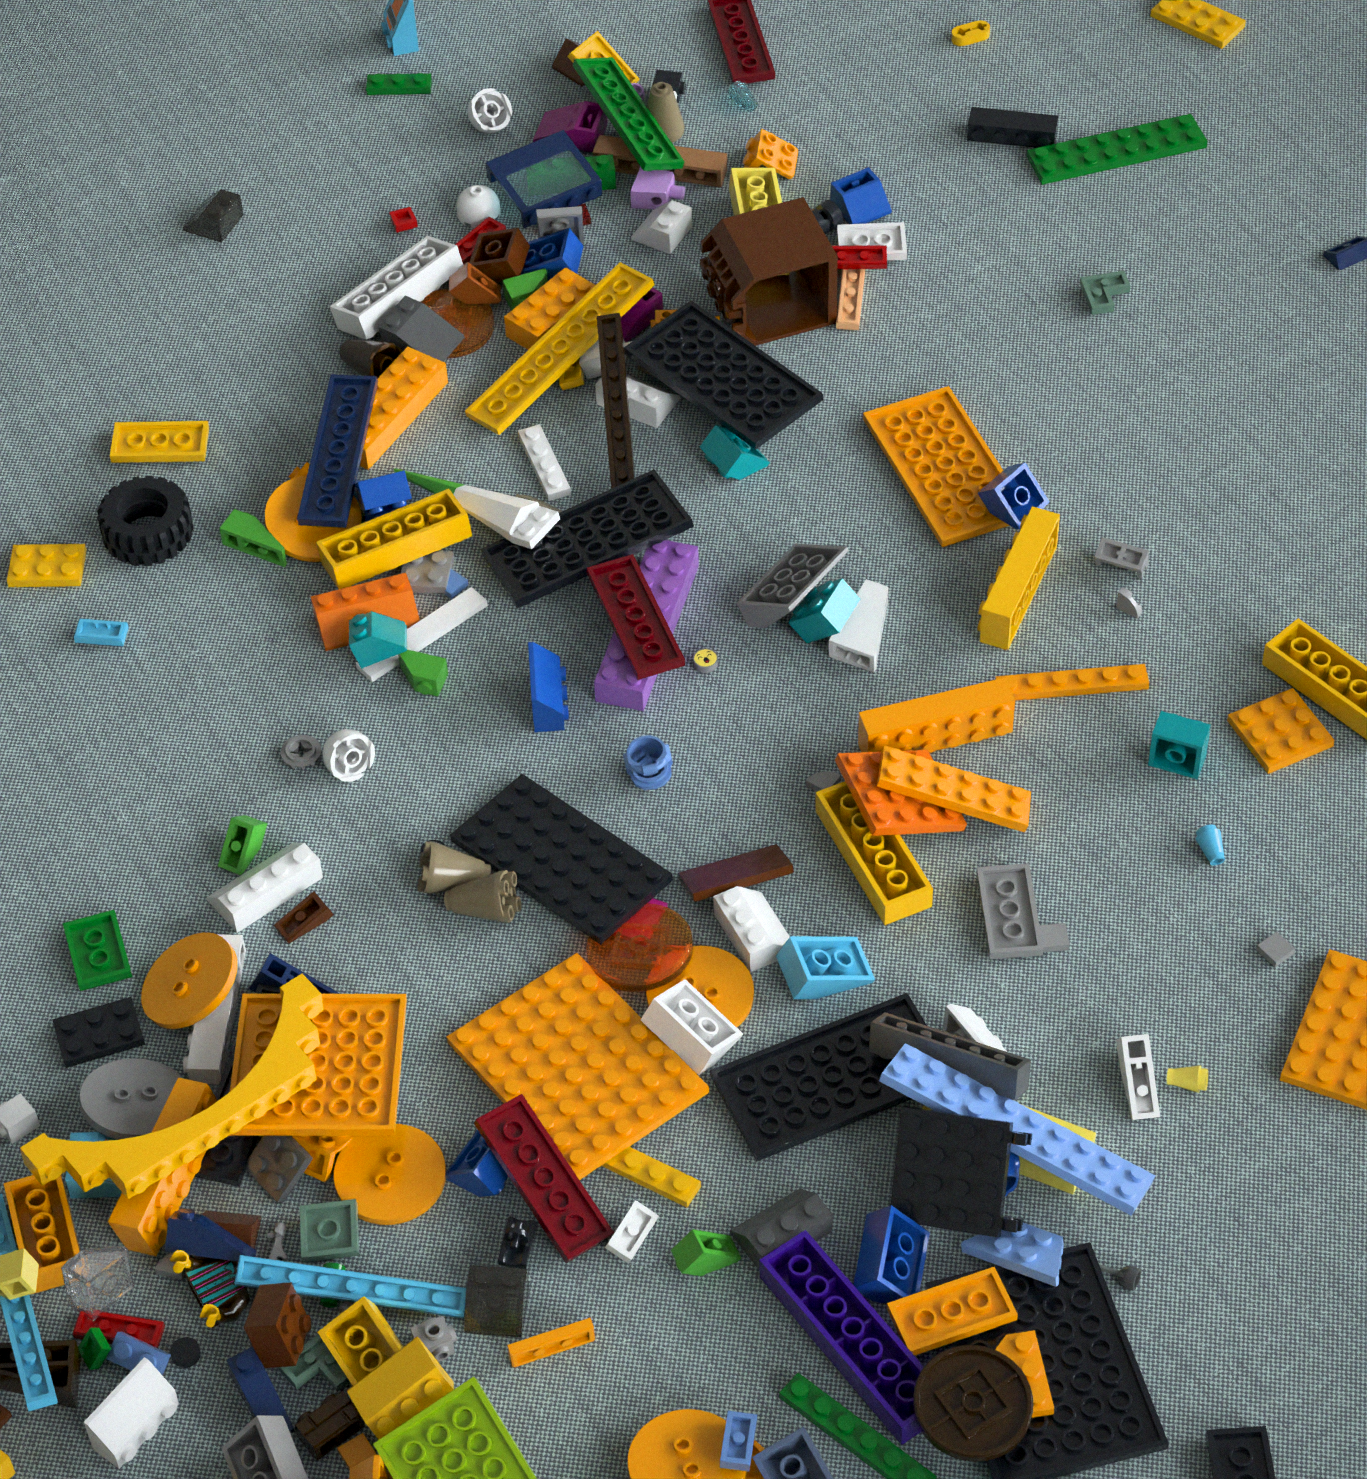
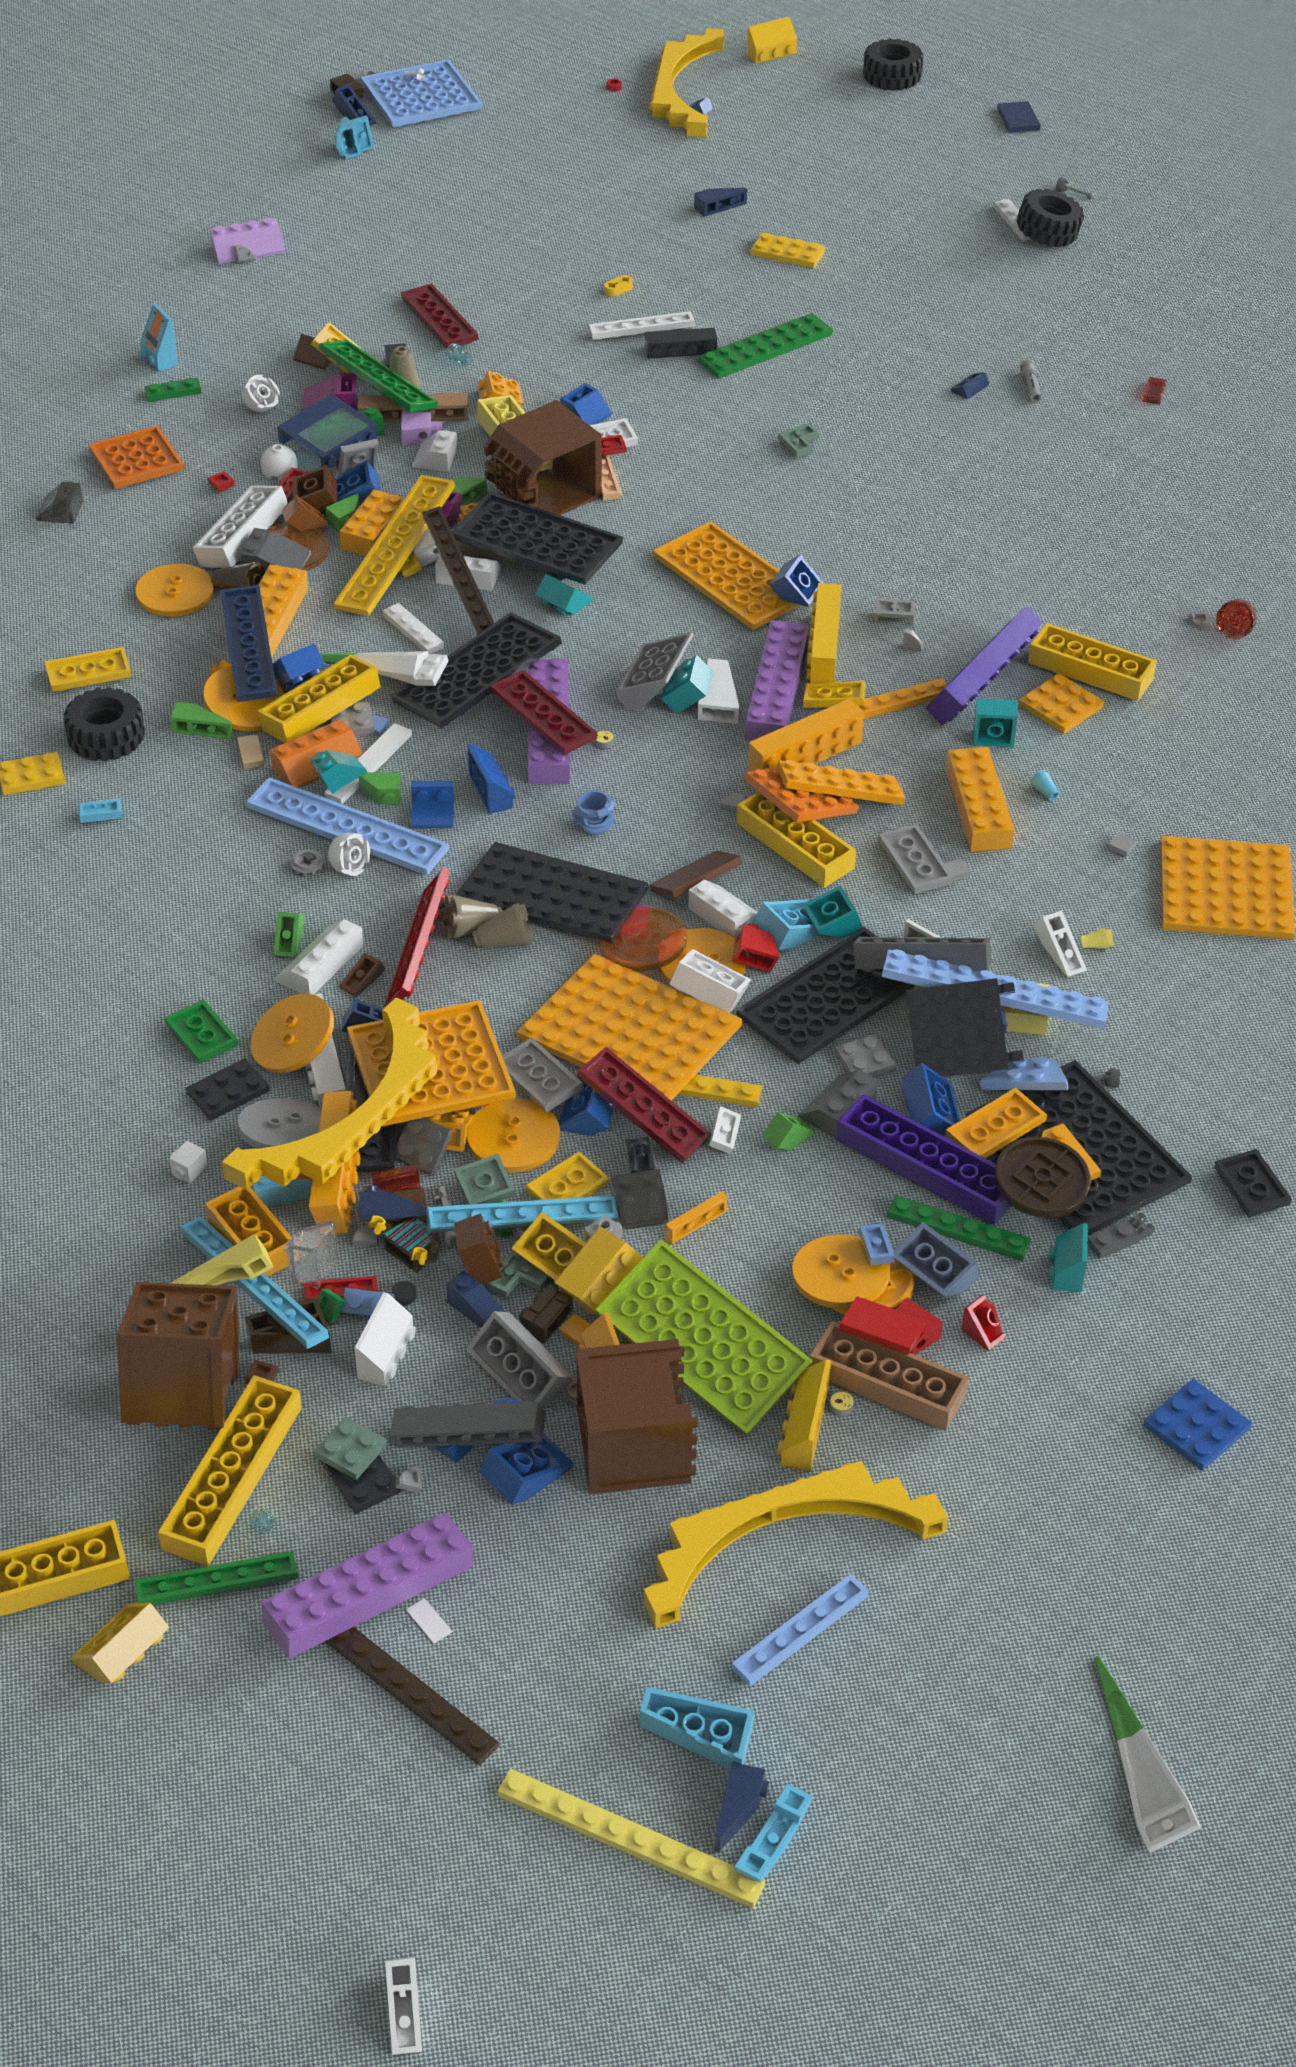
camera: 20 degrees left, 5 degrees down
(232, 1200) = (397, 1178): none -> clear red tile
(296, 354) = (174, 590): none -> light orange plate
(296, 589) = (250, 751): none -> tan tile
(322, 168) = (136, 457): none -> orange plate
(359, 707) = (333, 819): none -> light blue plate
(376, 892) = (417, 938): none -> red plate
(426, 1253) = (570, 1179): none -> yellow tile
(444, 1103) = (540, 1075): none -> light grey plate
(469, 708) = (432, 804): none -> blue bracket
(677, 285) = (470, 488): none -> bright green slope
(763, 992) = (755, 948): none -> red torso
(839, 1173) = (865, 1055): none -> light grey plate
(875, 968) = (833, 914): none -> teal slope
(937, 627) = (777, 678): none -> medium lavender brick
(976, 94) = (641, 325): none -> white plate
(1001, 659) = (831, 693): none -> yellow tile
(1120, 846) = (979, 799): none -> light orange brick
(1198, 662) = (984, 666): none -> brick

